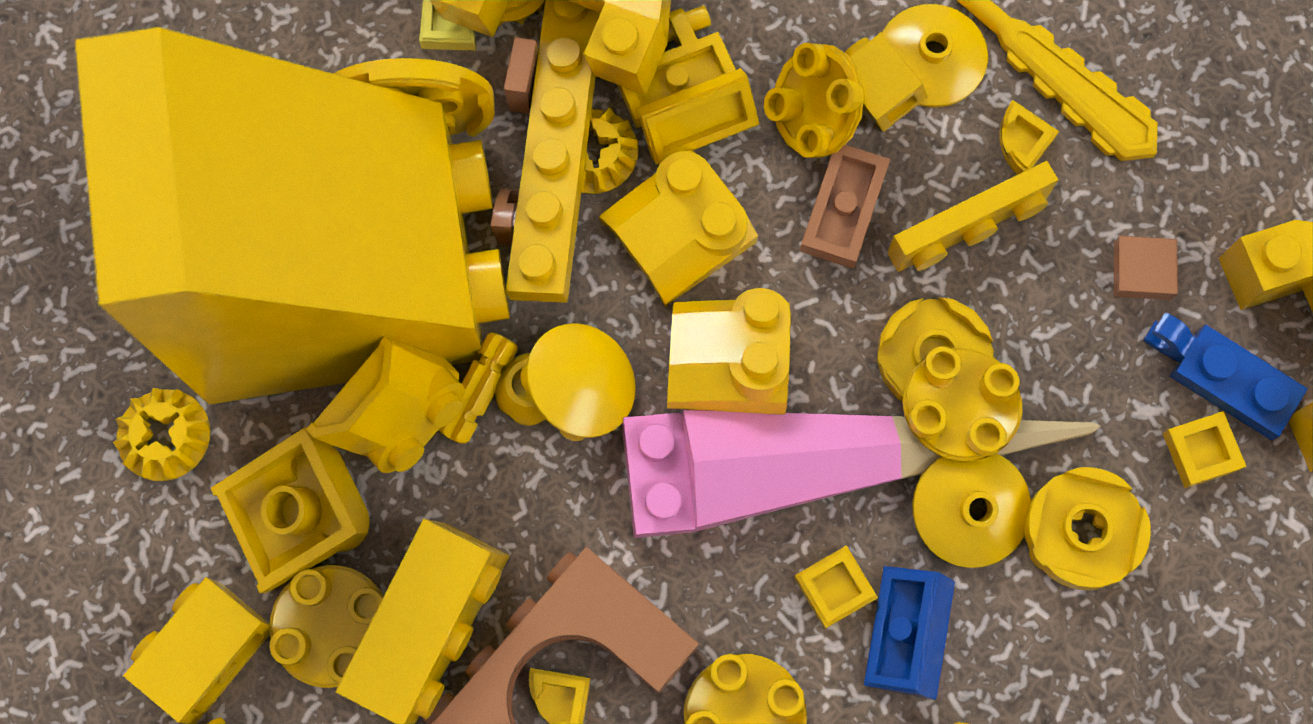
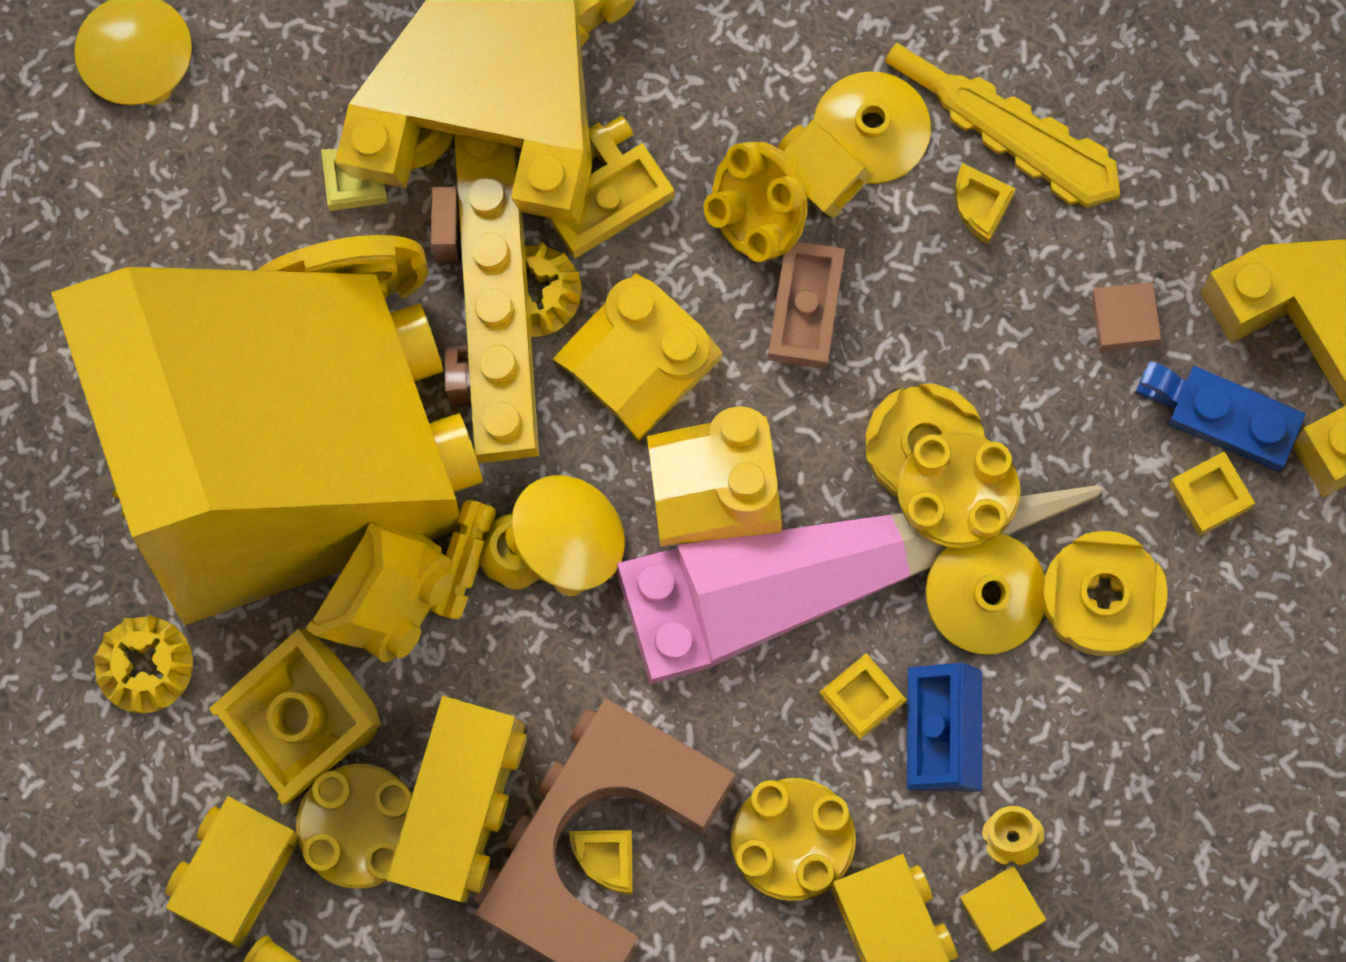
camera: 10 degrees left, 0 degrees up
(698, 115) = (638, 236): yellow tile -> none
(973, 218) = (940, 297): yellow plate -> none

